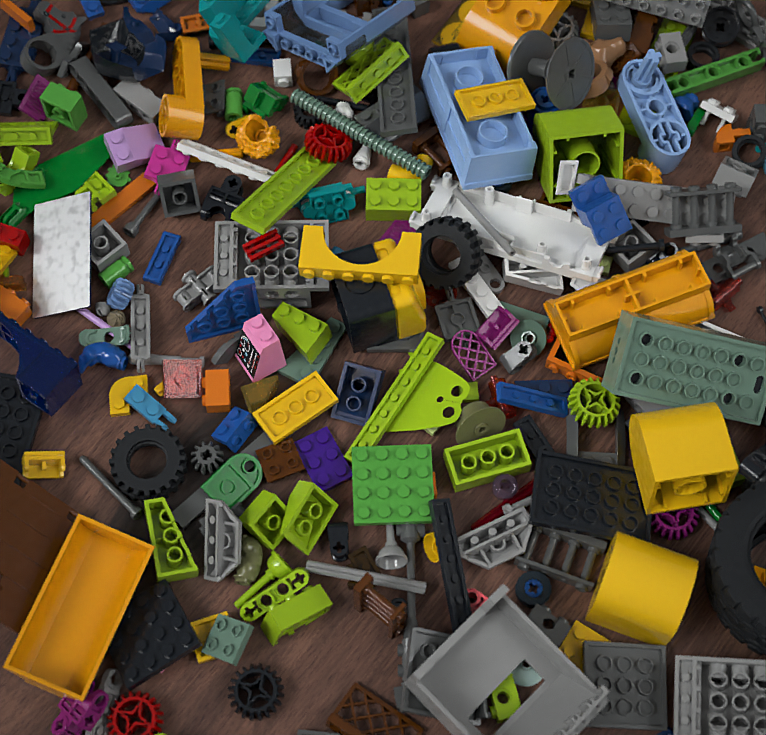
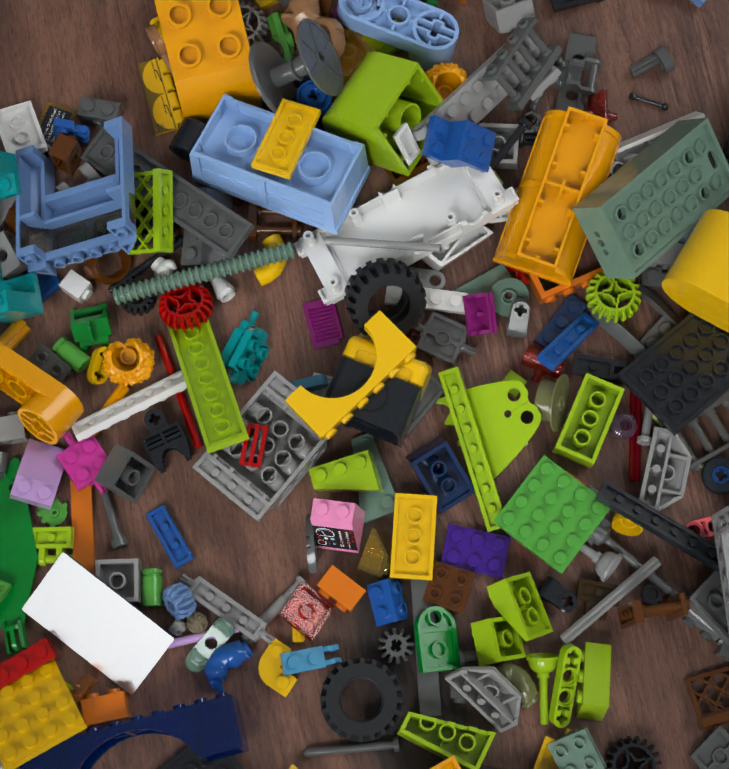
camera: 50 degrees left, 10 degrees up
(196, 290) = (229, 528): light grey axle -> none
(226, 312) = (284, 520): blue plate -> none
(392, 198) = (286, 297): lime brick -> none
(458, 357) = (503, 369): magenta window -> none

